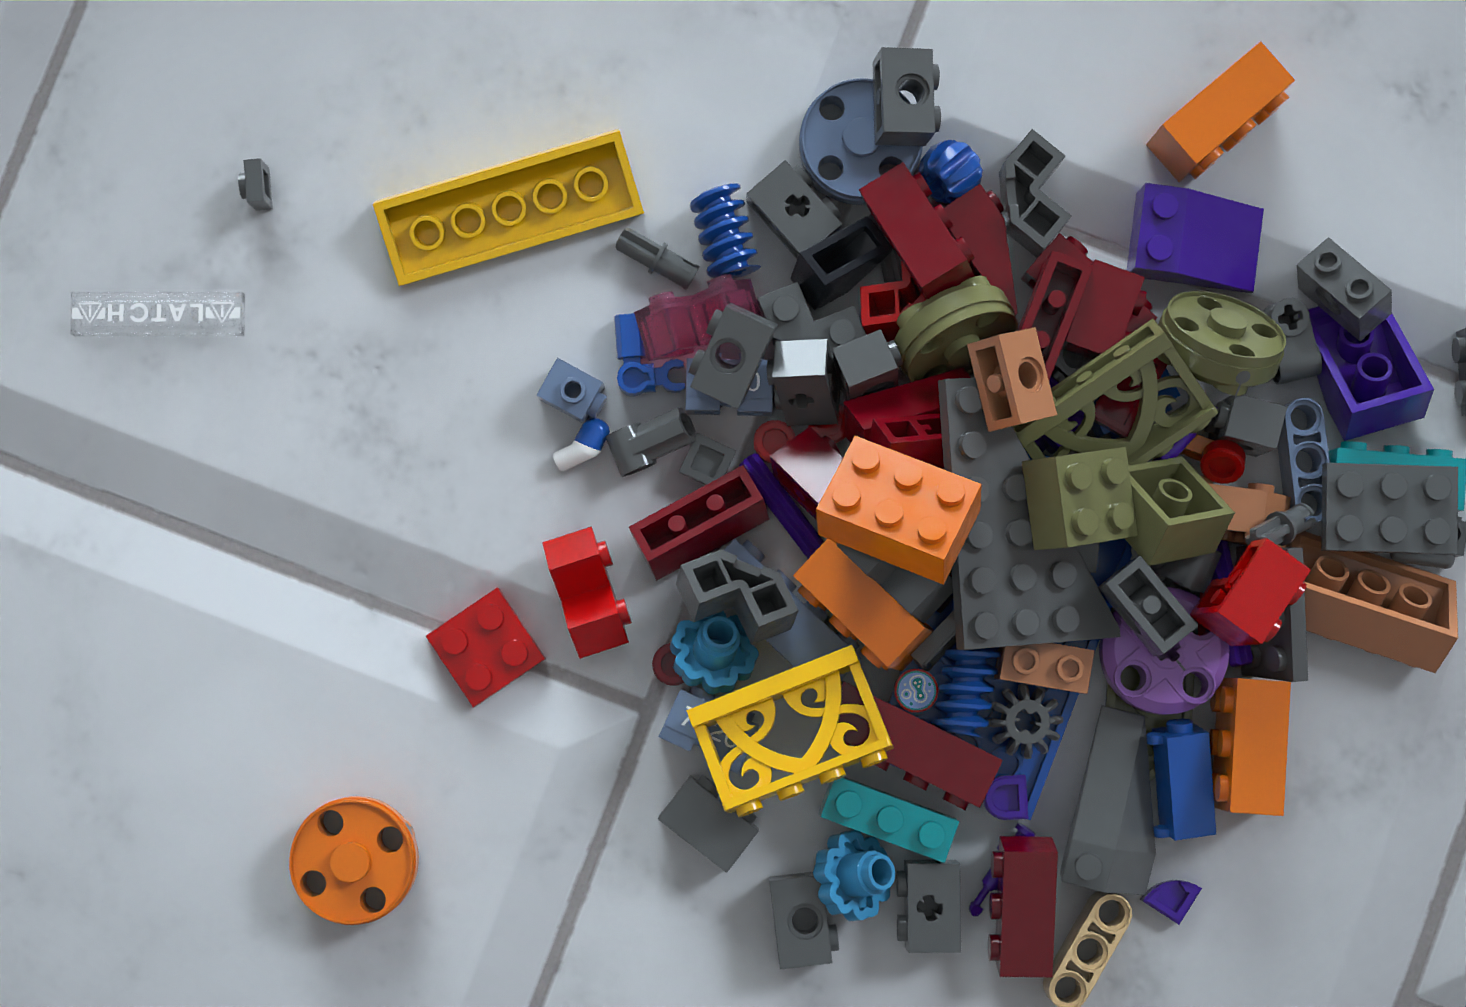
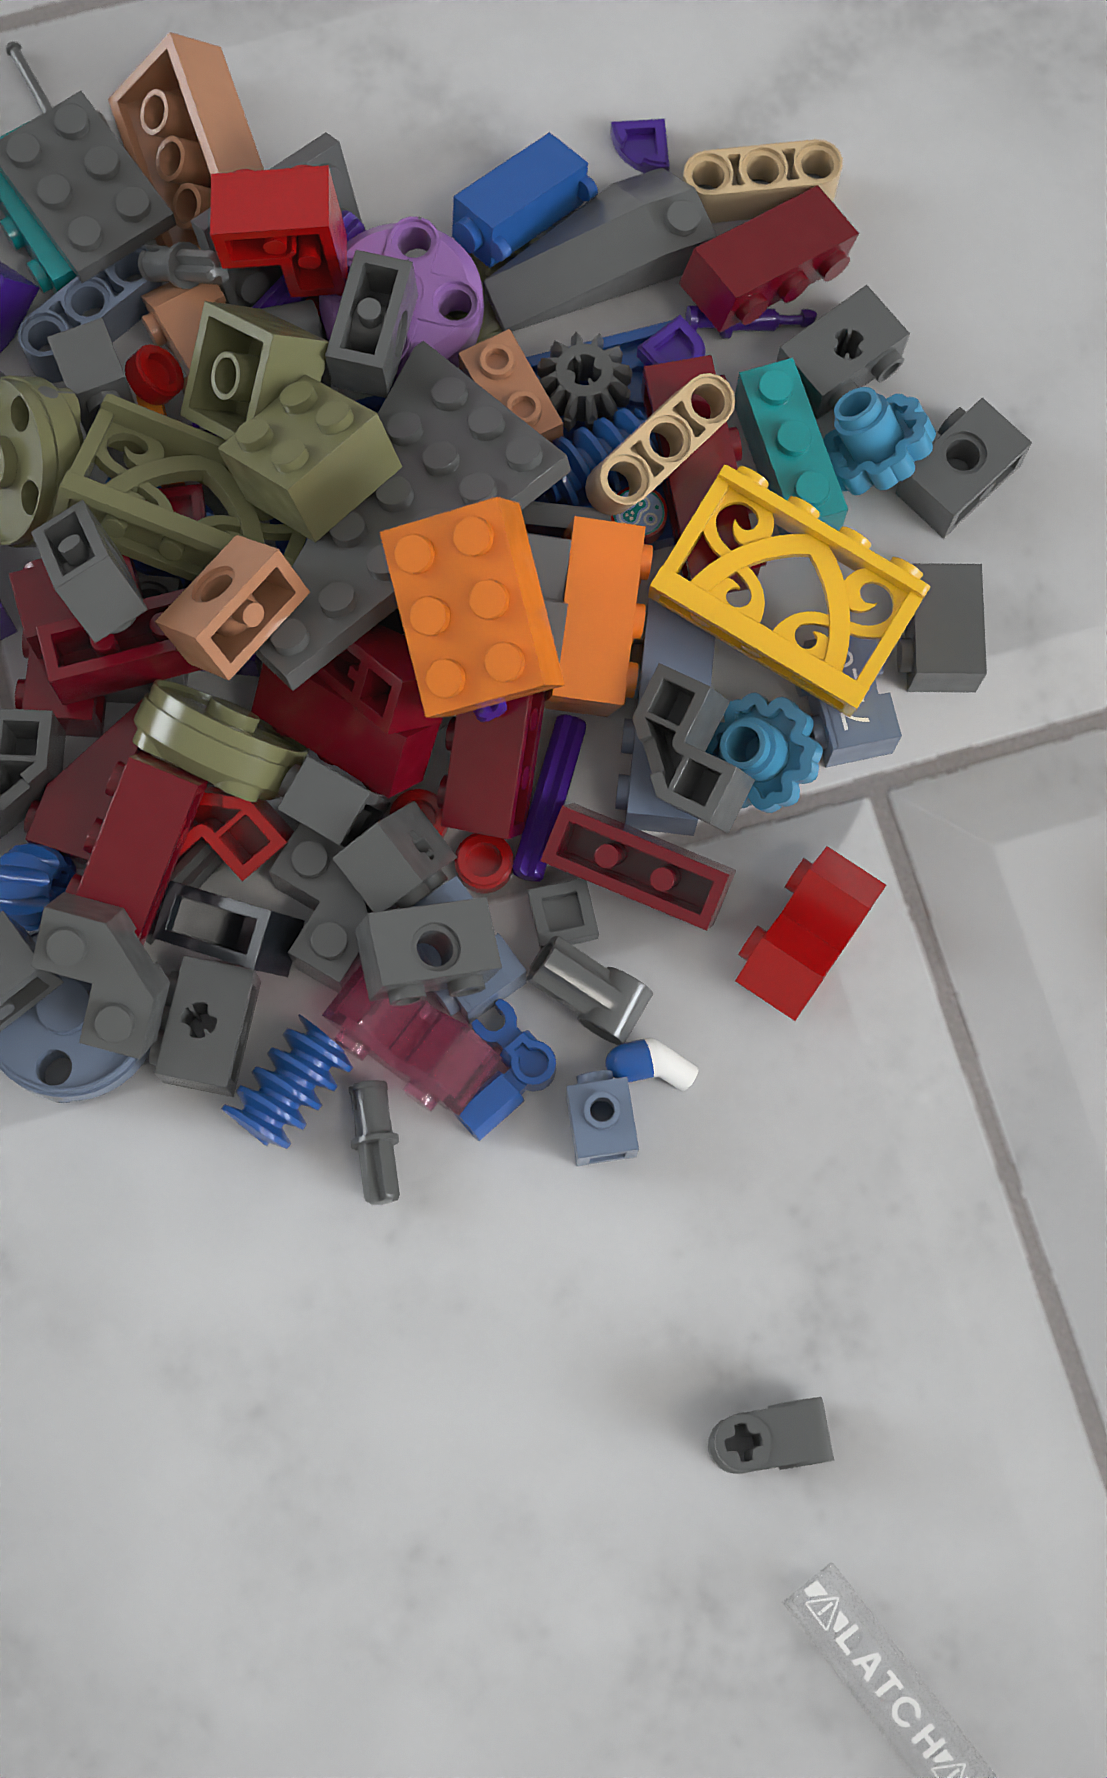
camera: 130 degrees left, 10 degrees down
(256, 184) = (646, 1691): dark grey plate -> none
(323, 359) = (782, 1435): none -> dark grey piece
(485, 647) = (953, 1003): red plate -> none
(508, 207) = (442, 1364): yellow arch -> none
(663, 666) = (815, 797): dark red tile -> none
(871, 168) = (100, 947): none -> dark grey brick
(929, 742) = (682, 430): none -> tan beam
(1097, 312) = (89, 572): none -> dark grey brick
(1250, 745) = (432, 150): orange brick -> none

